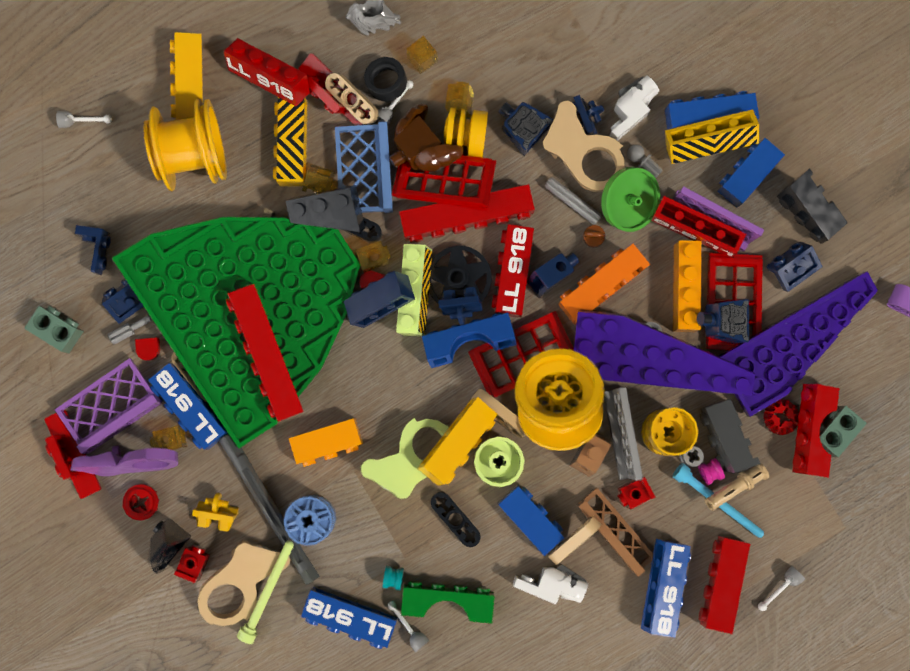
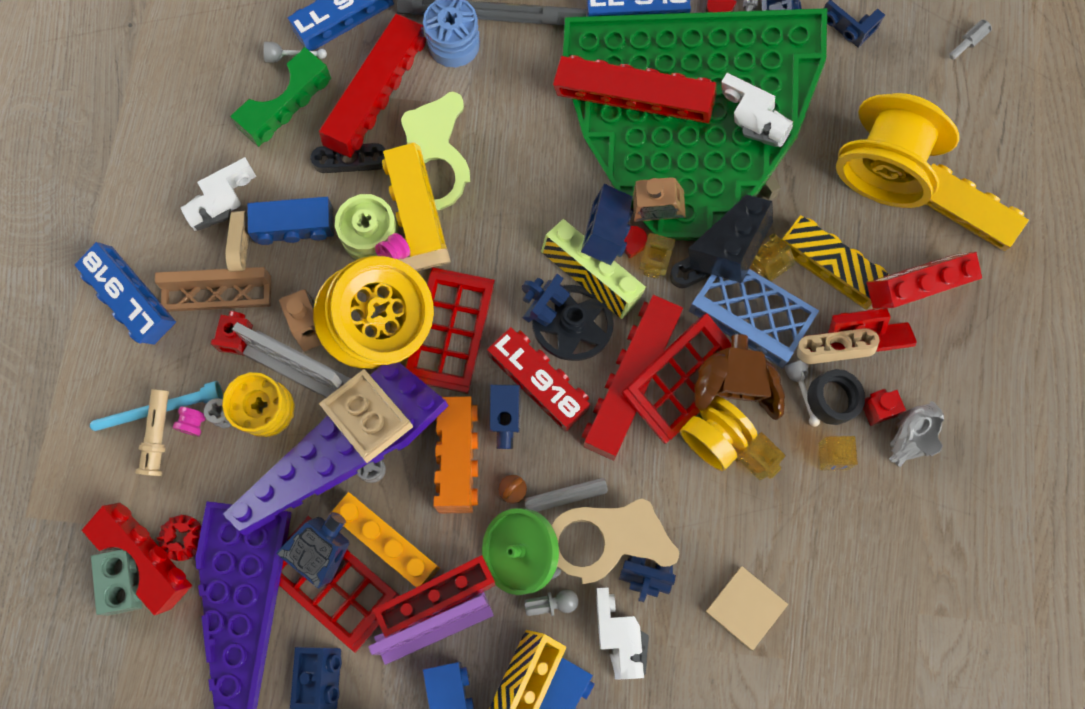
camera: 130 degrees right, 10 degrees down
(48, 159) = (972, 37): none -> light grey axle
(66, 119) = (1001, 77): hinge -> none
(231, 252) = (756, 112): none -> white plate
(326, 442) = (511, 95): light orange brick -> none
(339, 277) = (658, 199): none -> medium nougat torso
(370, 47) = (883, 406): none -> red brick
(391, 543) = (372, 86): none -> red brick
(393, 578) = (343, 68): teal wheel -> none
(442, 345) = (516, 255): blue arch -> none
(505, 426) = (394, 247): none -> dark pink wheel
(524, 125) = (683, 502): torso -> none
(557, 47) = (746, 608): none -> tan tile
(626, 353) = (366, 415): none -> tan tile
(724, 585) = (79, 352): red brick -> none
(727, 437) = (204, 461): dark grey wedge -> none
(792, 578) = (28, 423): hinge -> none

